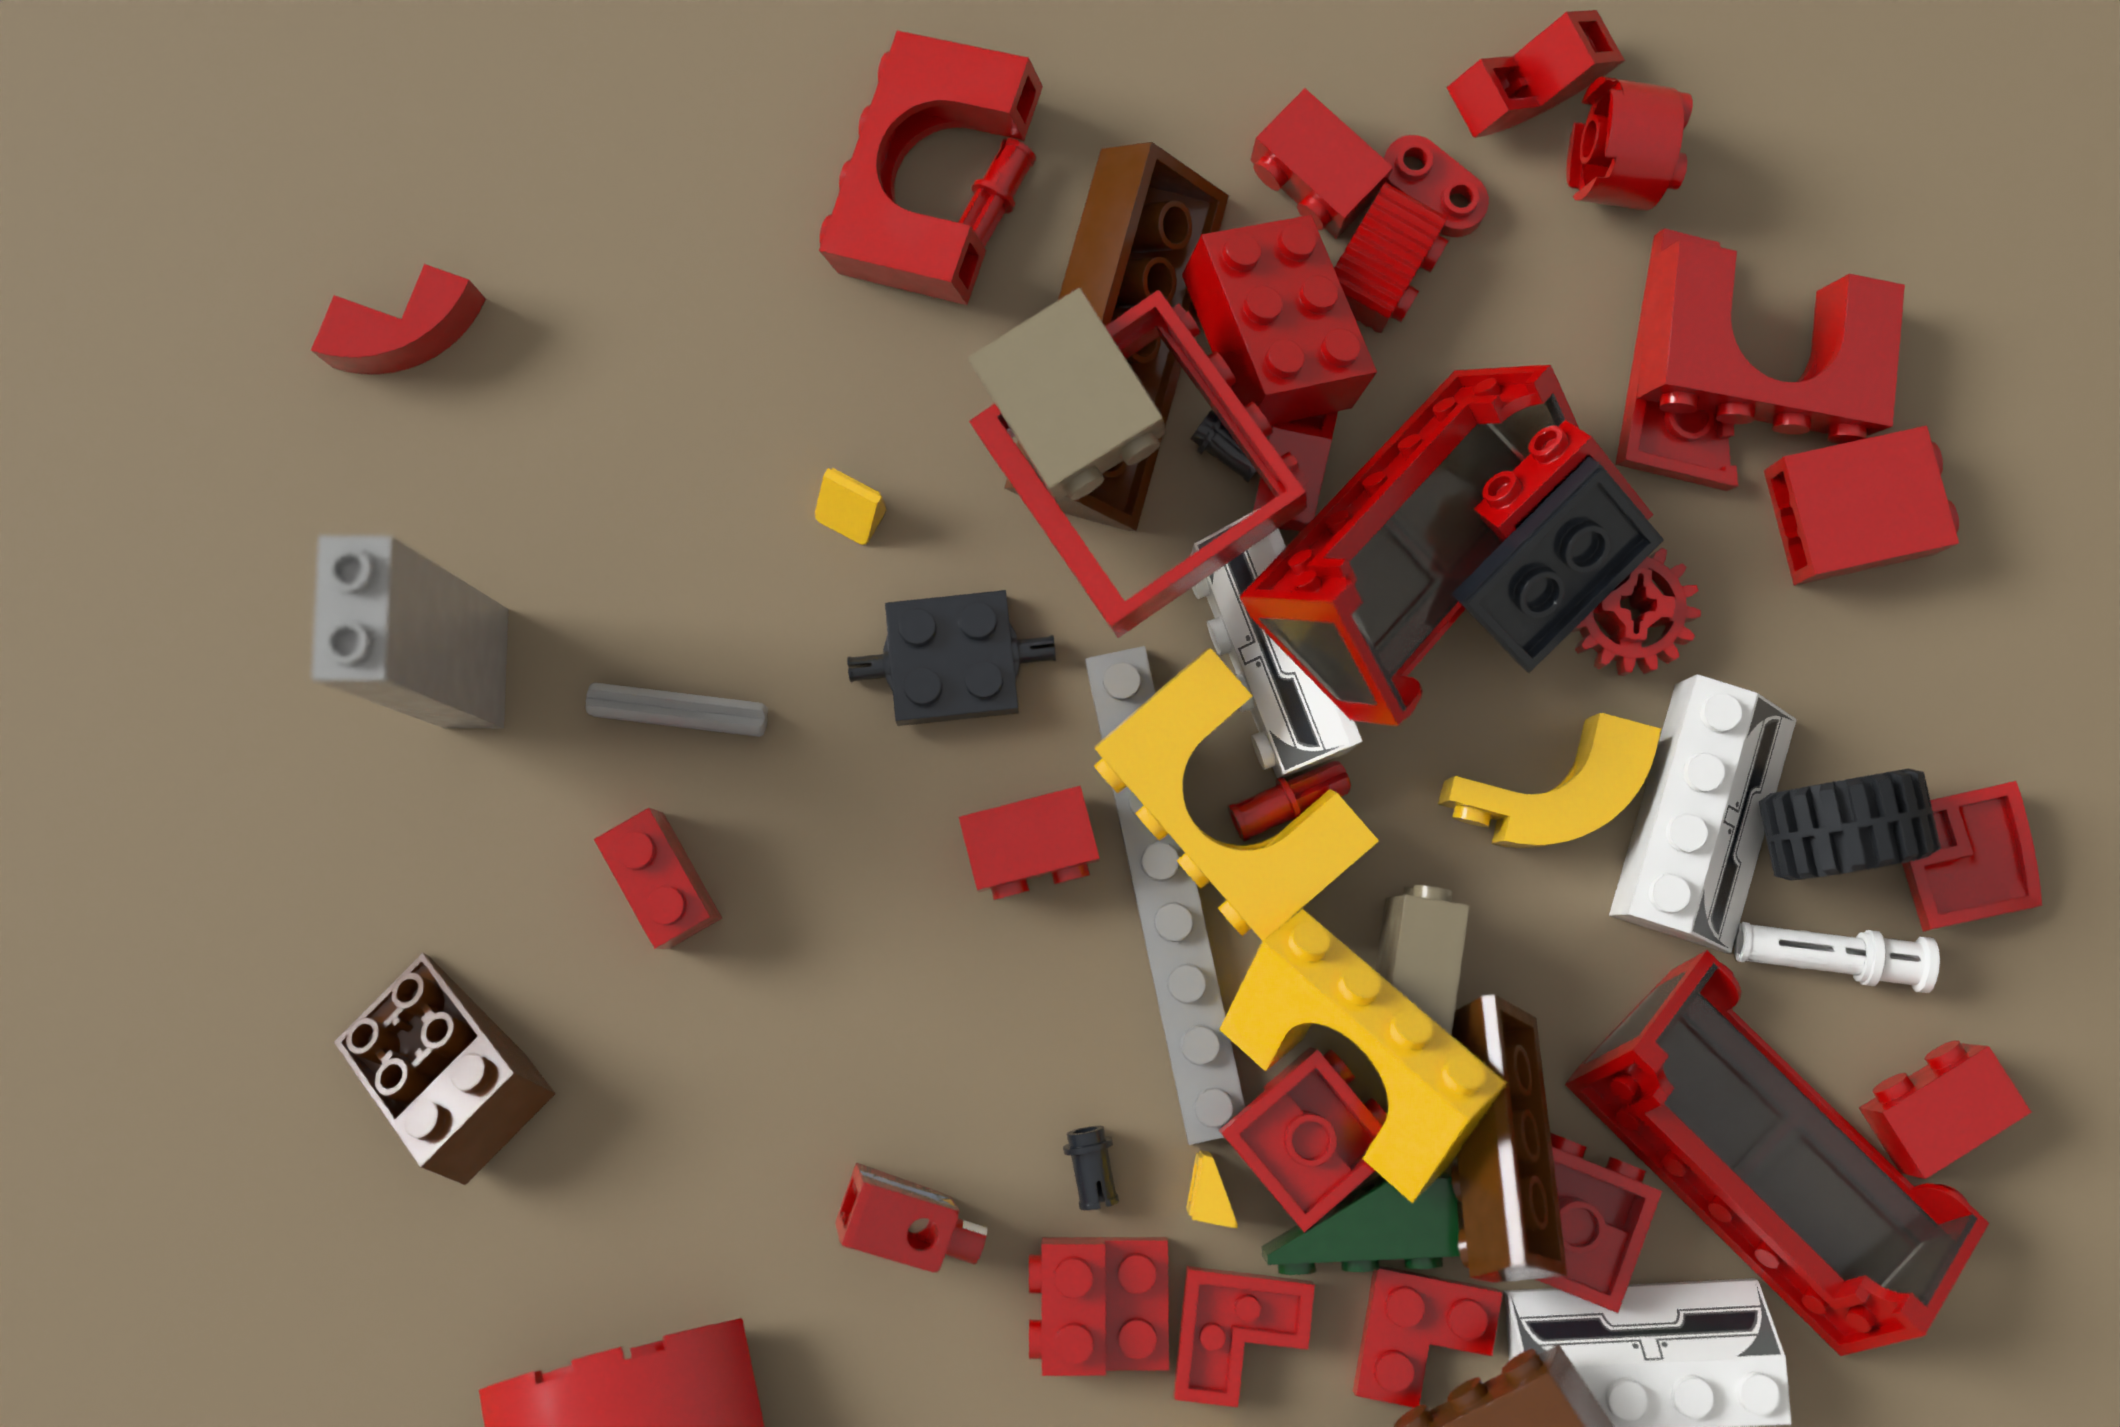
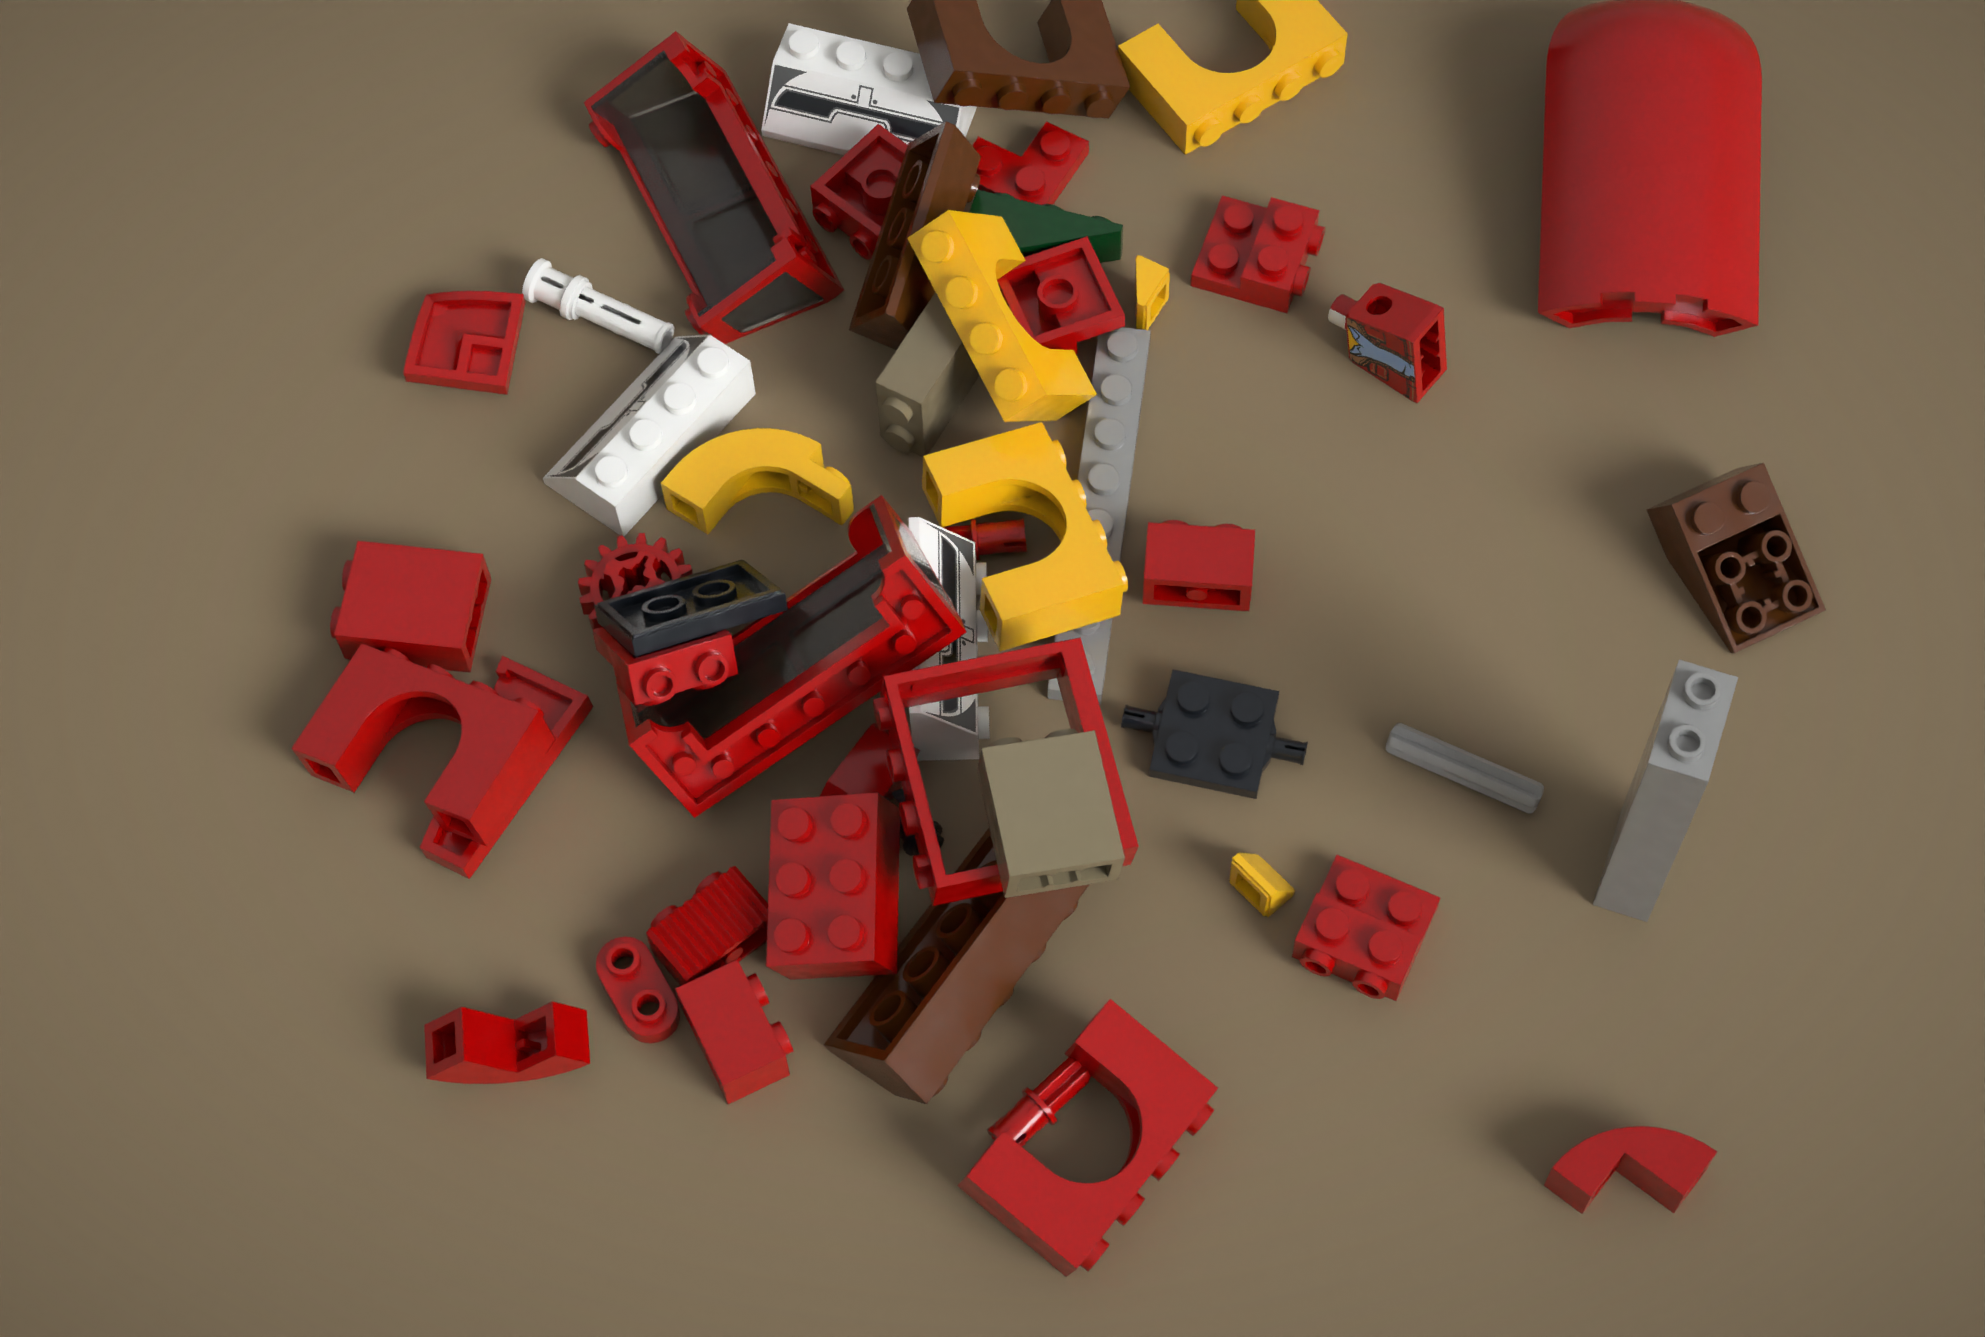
camera: 160 degrees left, 20 degrees down
(657, 879) = (1517, 633): red brick -> none
(729, 491) = (1365, 928): none -> red plate
(1092, 1166) = (1230, 348): black pin -> none
(1221, 1315) = (1167, 217): red plate -> none
(1628, 144) = (461, 942): red brick -> none
(1849, 825) = (553, 367): black tyre -> none
(1943, 1108) = (573, 186): red brick -> none

